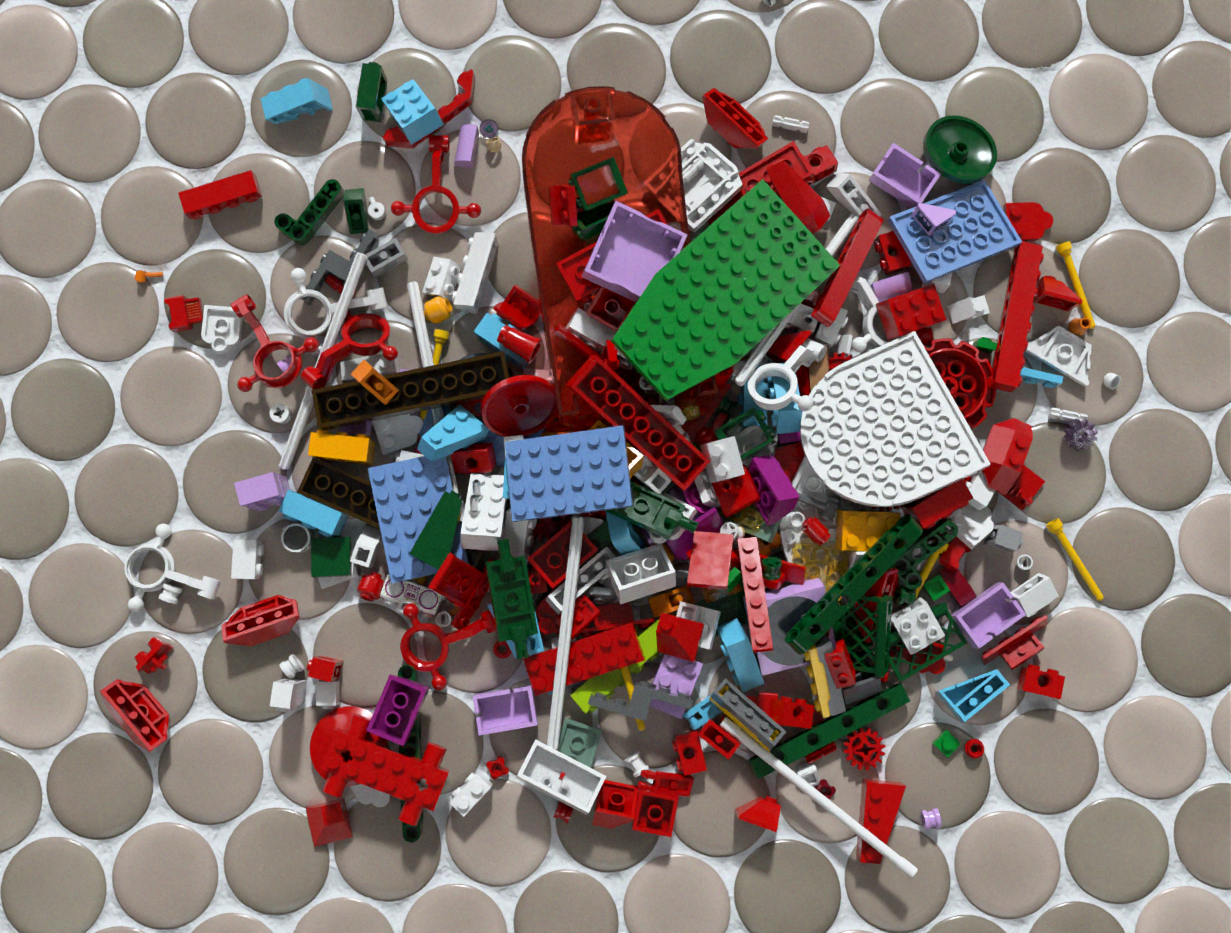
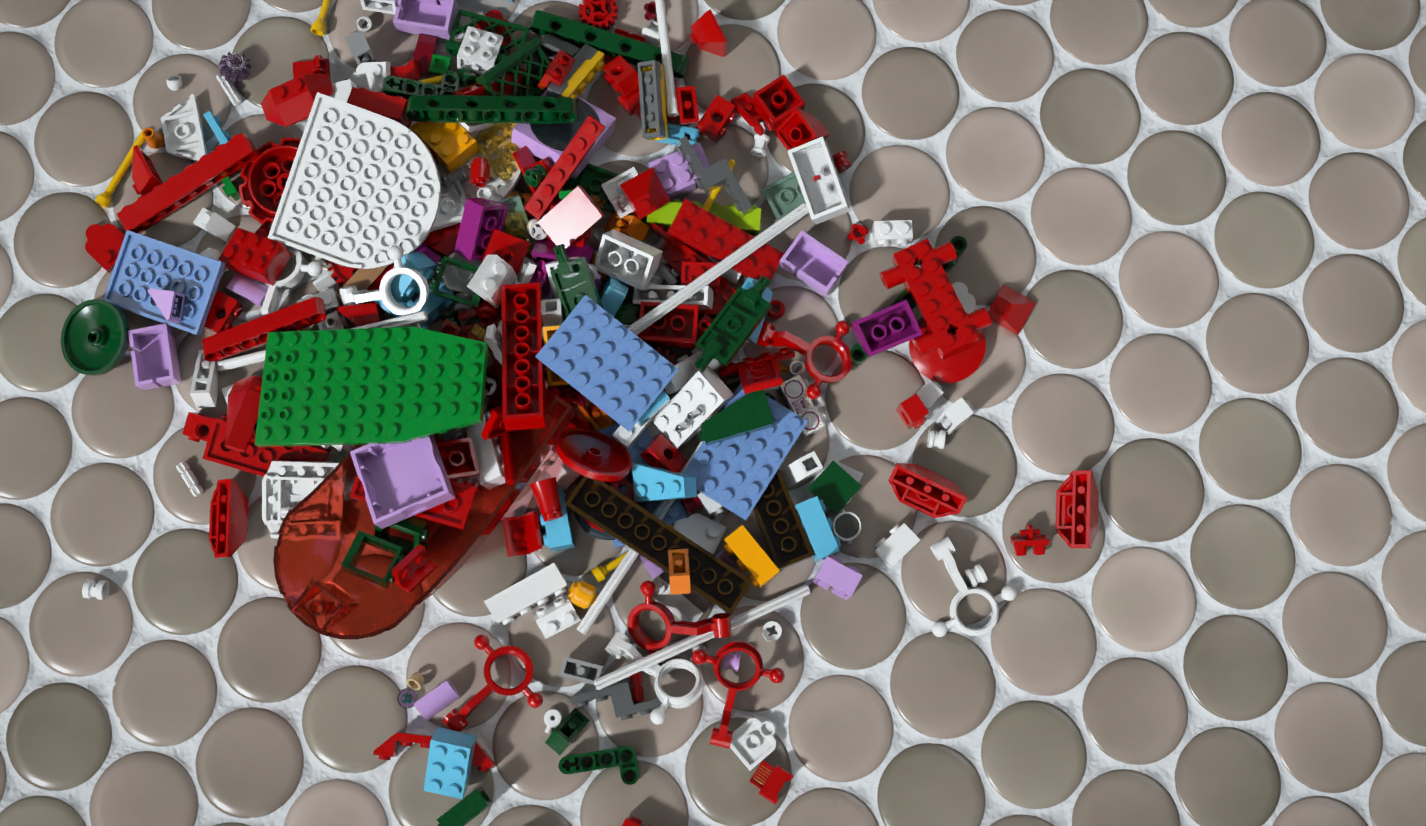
camera: 130 degrees left, 5 degrees down
(370, 586) = (826, 440): red head -> none
(740, 655) = (616, 146): medium azure wedge -> none

